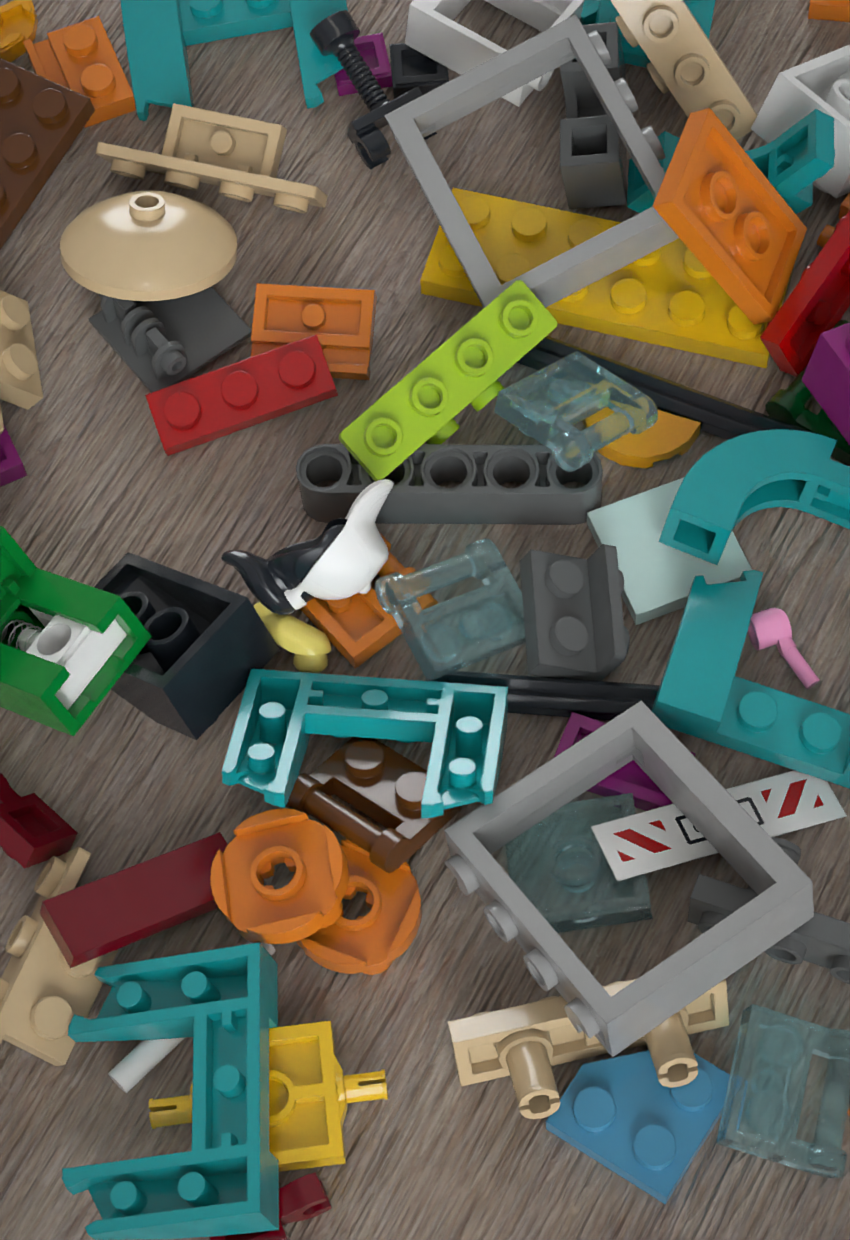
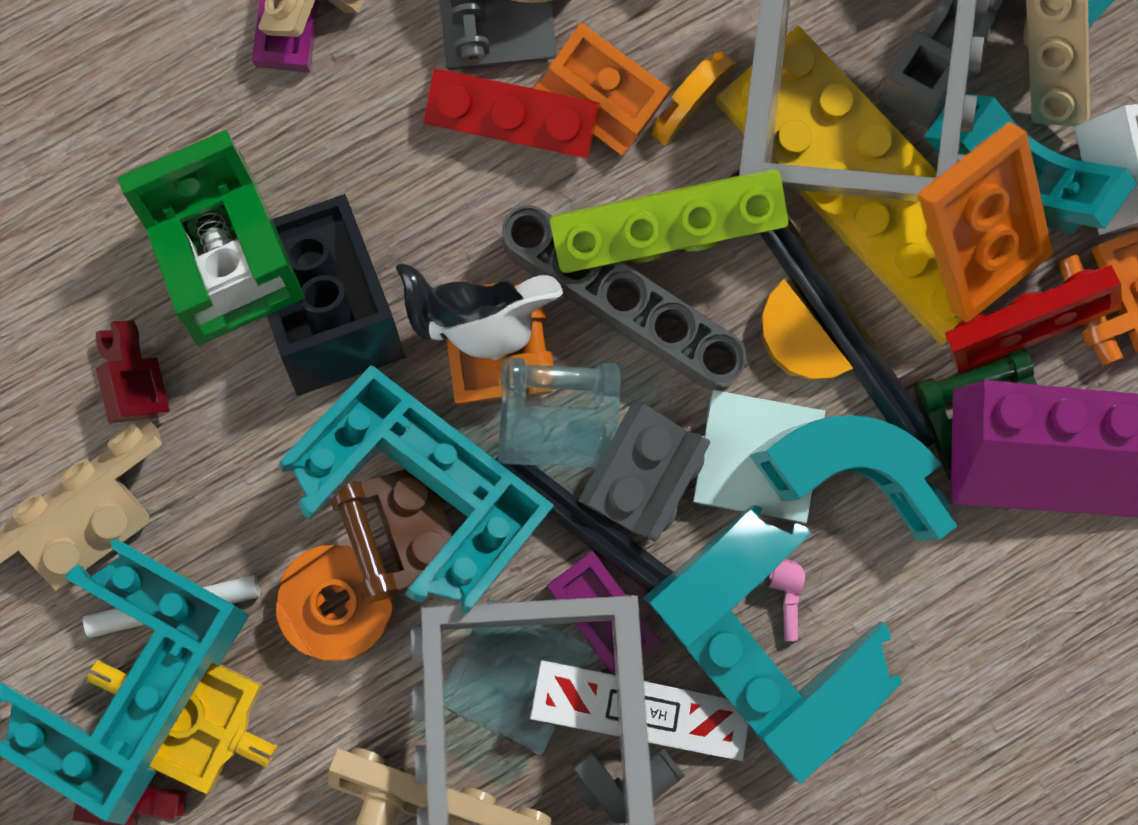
camera: 20 degrees right, 20 degrees up
(133, 902) = (181, 505): dark red tile -> none
(298, 638) = (423, 357): light yellow arm -> none
(300, 907) = (299, 587): orange plate -> none
(398, 287) = (692, 95): none -> light orange tile
(567, 393) = (752, 288): clear light blue plate -> none

